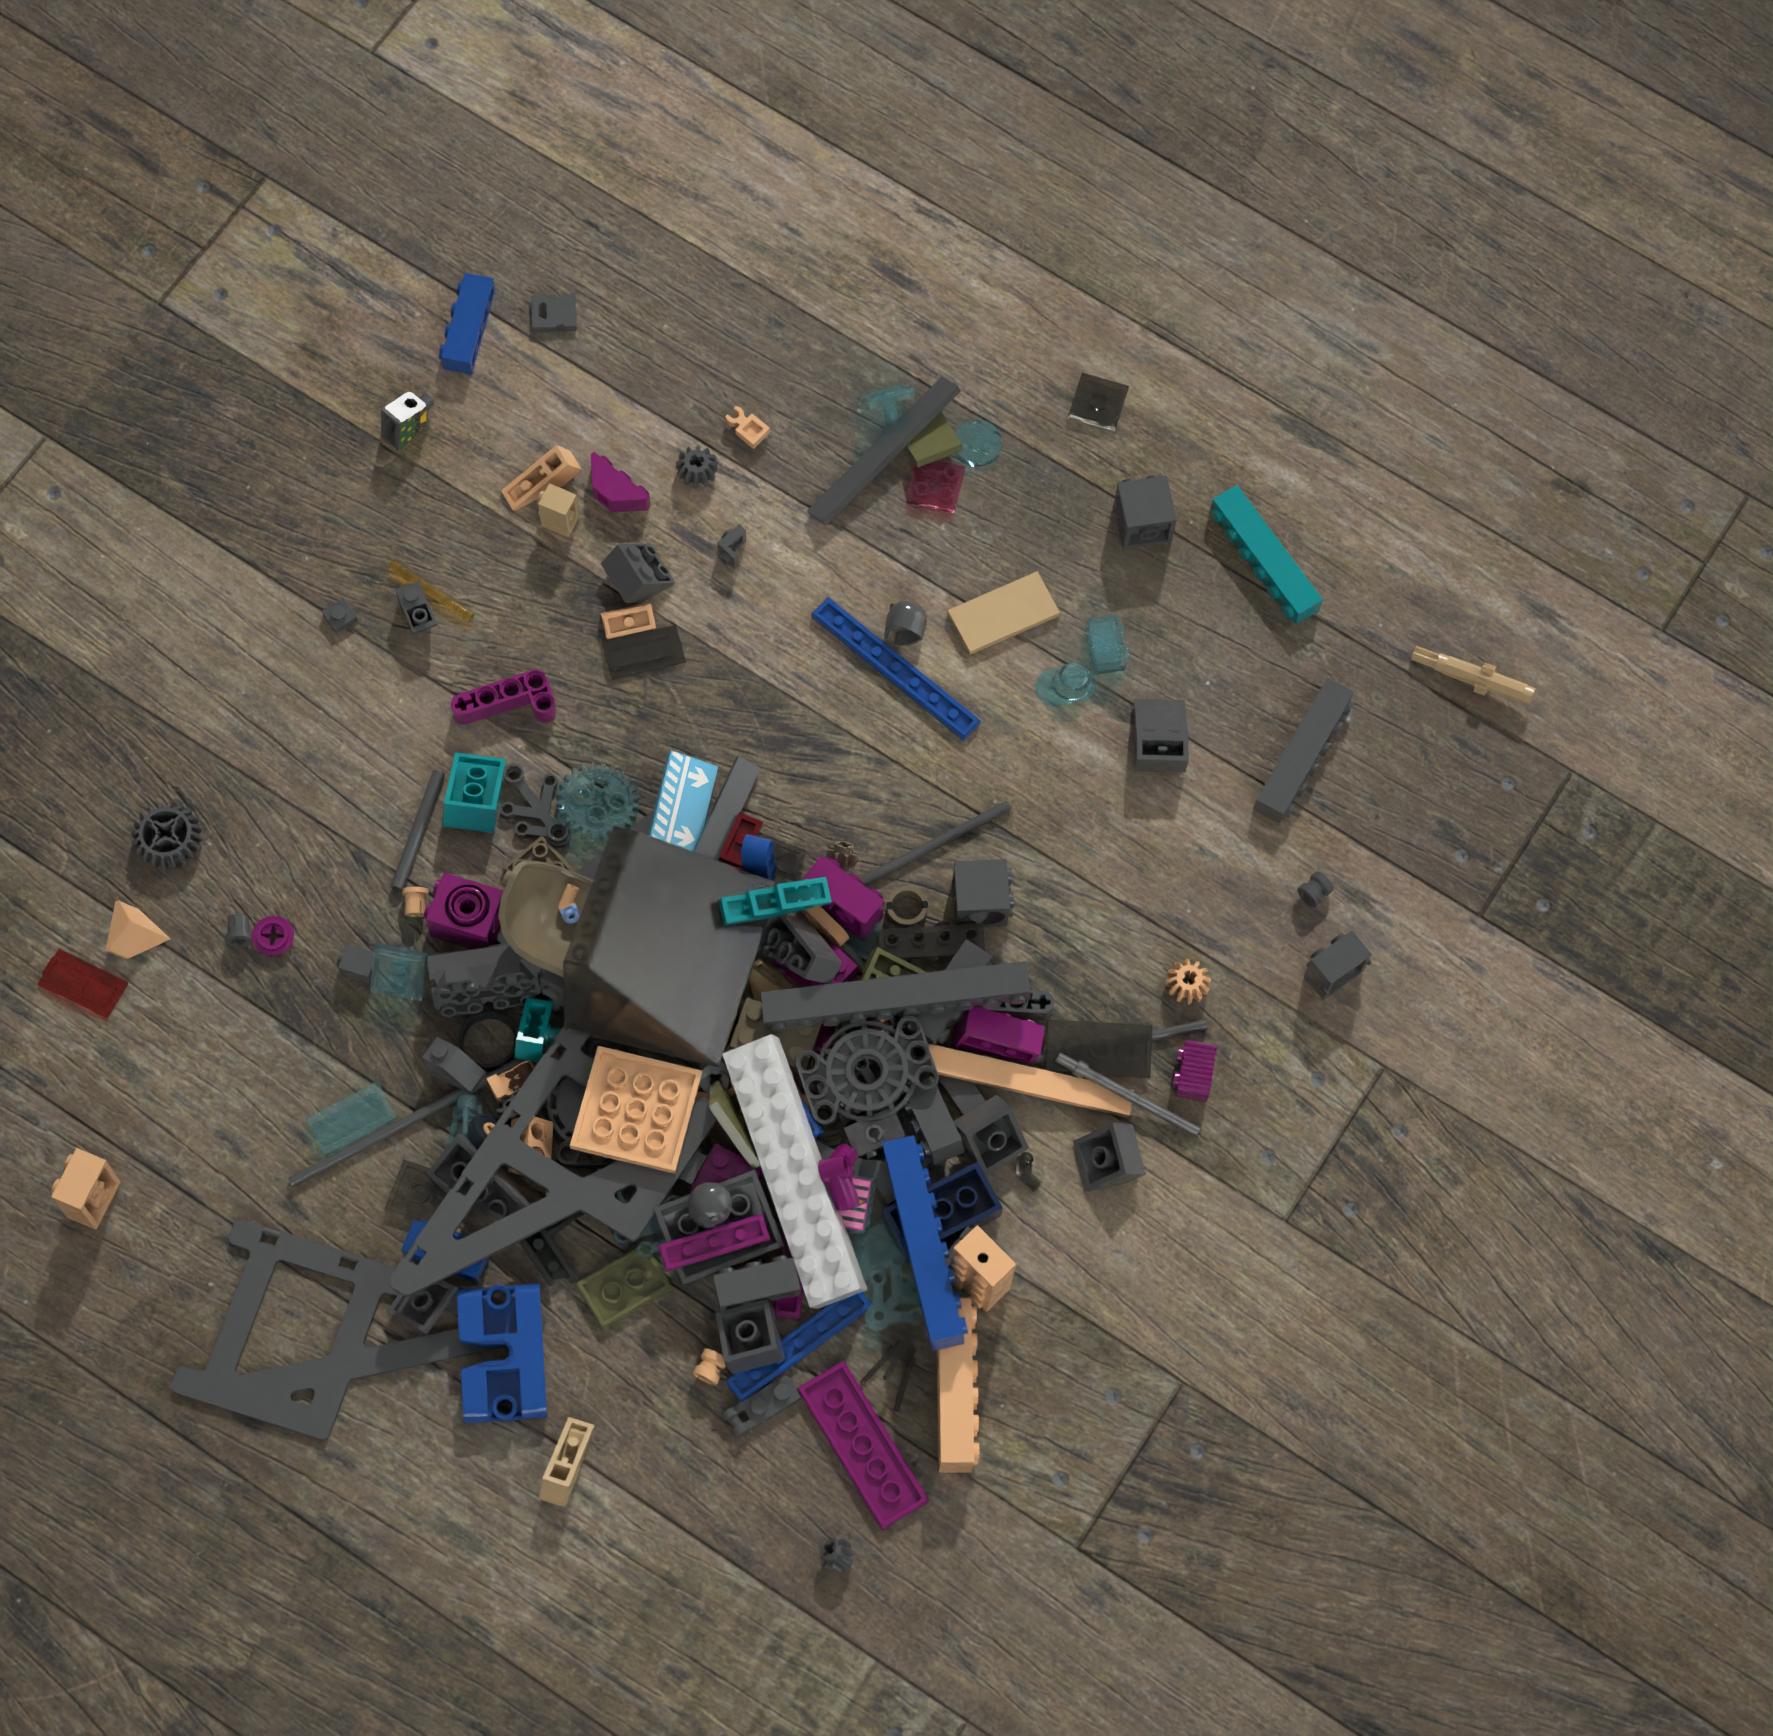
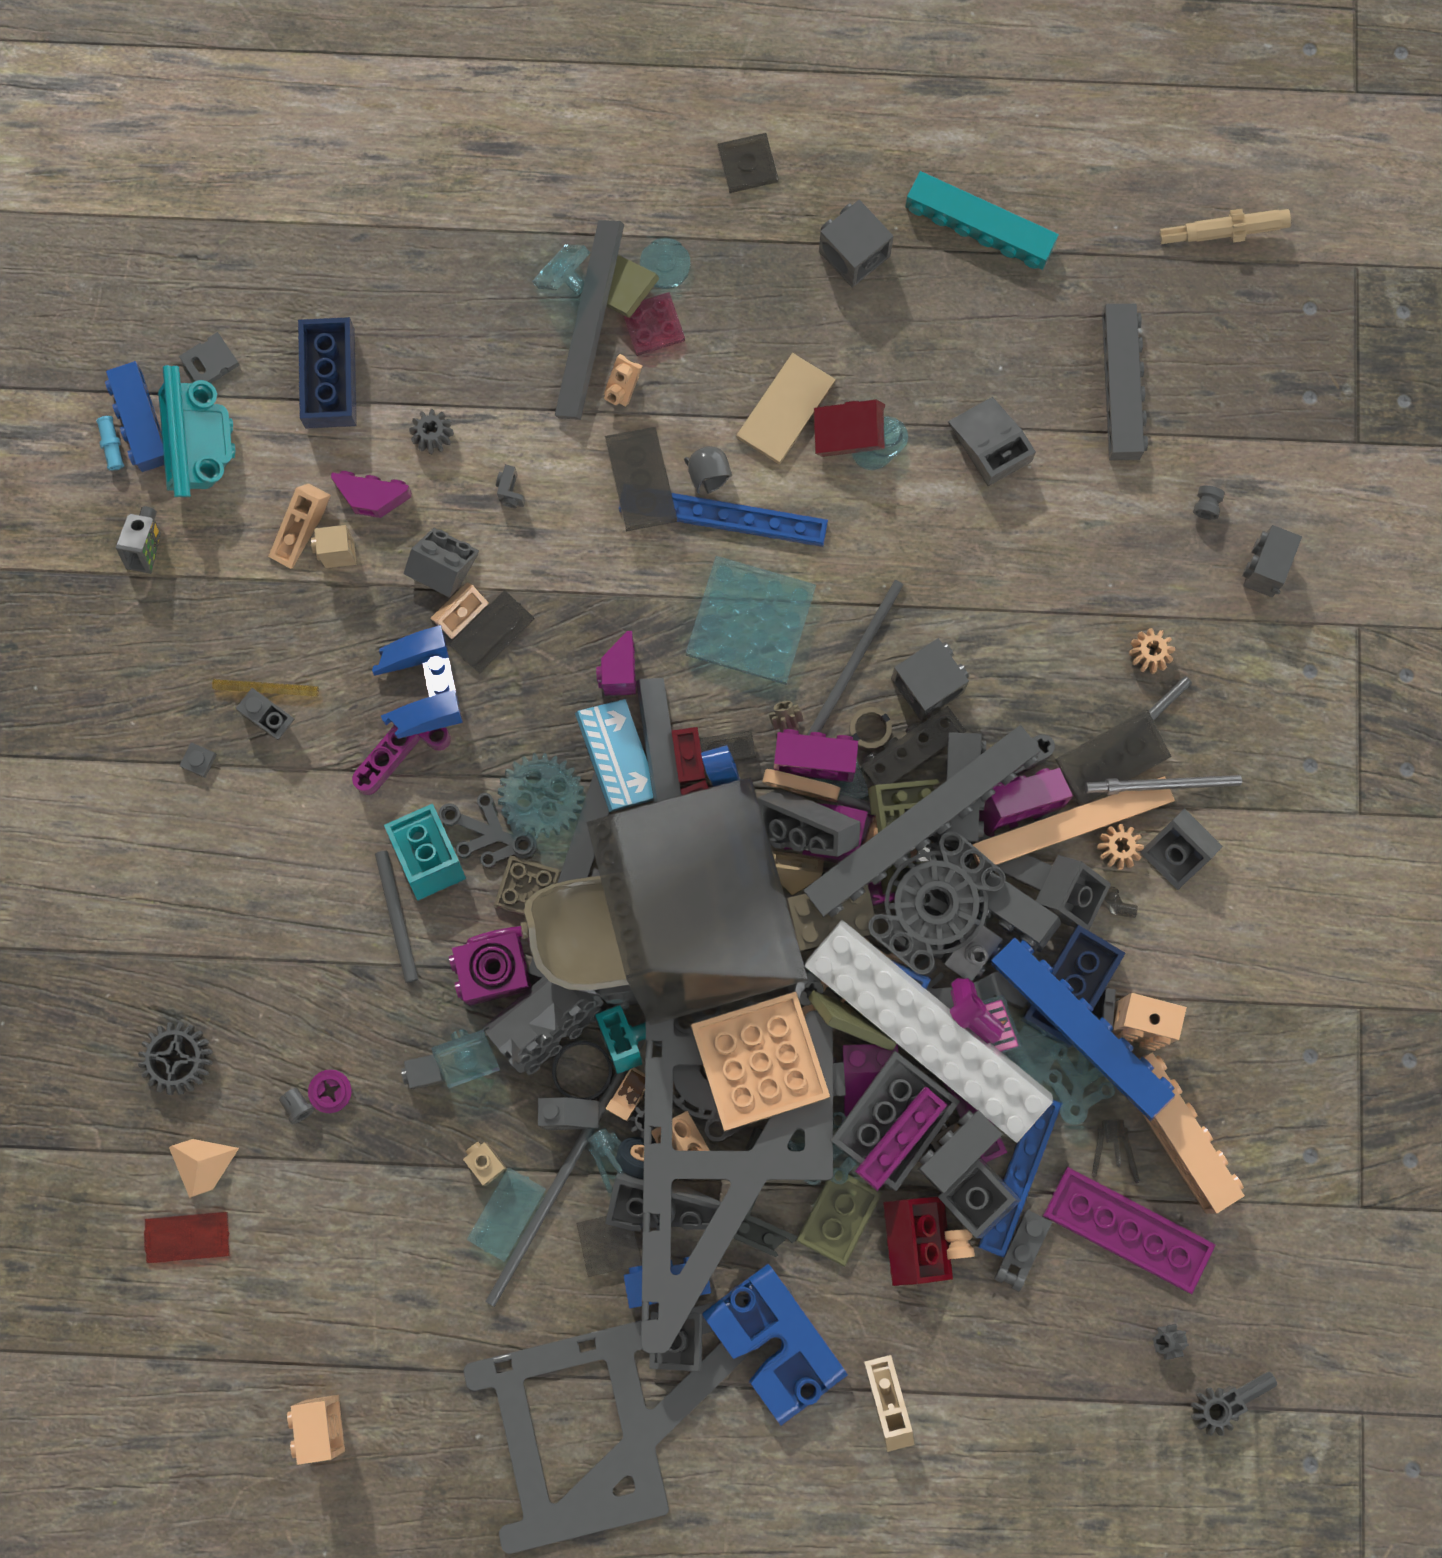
camera: 25 degrees left, 10 degrees up
(359, 1065) = (484, 1162): none -> tan brick
(415, 901) = (437, 983): light nougat bush -> none
(432, 331) = (110, 443): none -> medium azure pin
(503, 359) = (193, 434): none -> teal brick
(559, 682) = (442, 705): none -> blue wedge
(568, 906) = (584, 914): arm -> none
(641, 373) = (327, 372): none -> dark blue brick
(676, 1343) = (917, 1241): none -> dark red slope
(709, 1204) = (881, 1109): dark grey helmet -> none
(728, 735) = (618, 668): none -> magenta slope
(748, 429) = (456, 369): light nougat plate -> none
(774, 901) = (764, 800): teal slope -> none
(844, 599) = (640, 479): none -> clear smoke tile
(857, 1638) = (1231, 1403): none -> dark grey gear
(863, 763) = (750, 620): none -> clear light blue plate
(879, 513) = (622, 381): none -> light nougat hips
(1044, 655) = (849, 428): none -> dark red container
(1046, 1127) = (1111, 848): none -> light nougat gear
(1106, 644) = (895, 384): clear light blue brick -> none
(1195, 1070) = (1206, 727): magenta brick -> none

